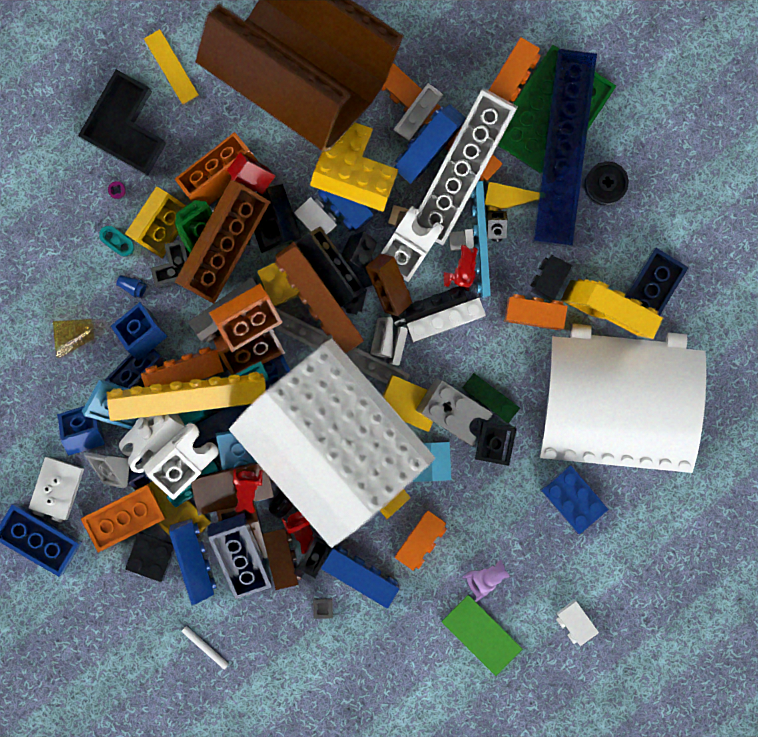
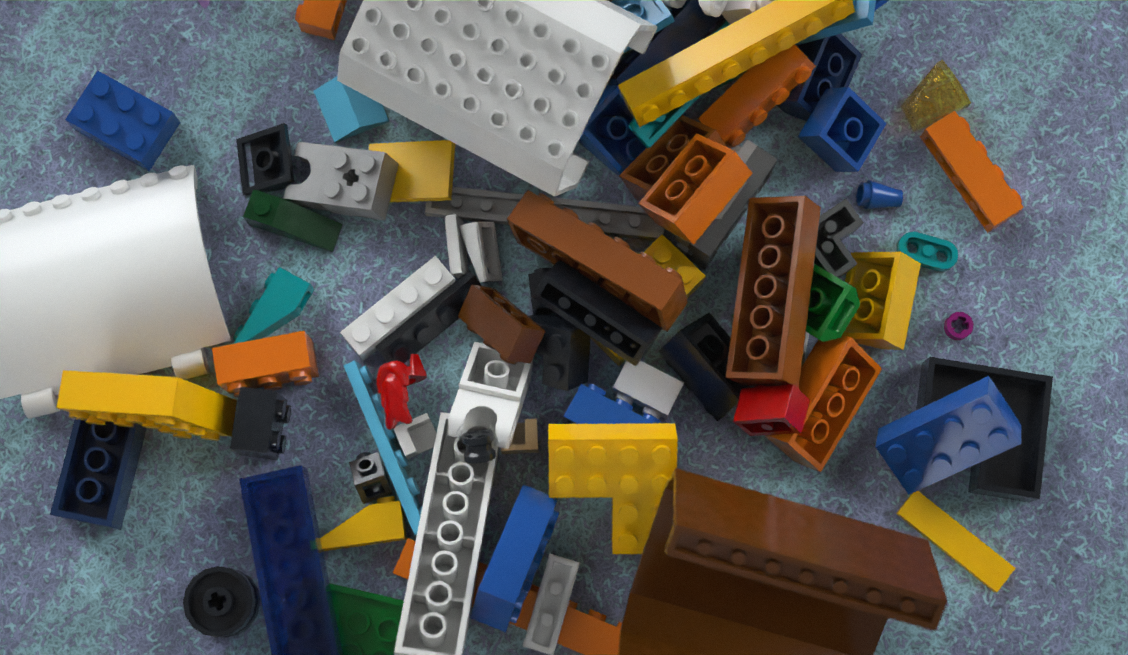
camera: 165 degrees right, 10 degrees down
(69, 279) = (972, 171): none -> orange brick
(154, 121) = (949, 435): none -> blue brick
(428, 212) = (478, 446): none -> black wheel
(515, 349) = (278, 305): none -> teal slope

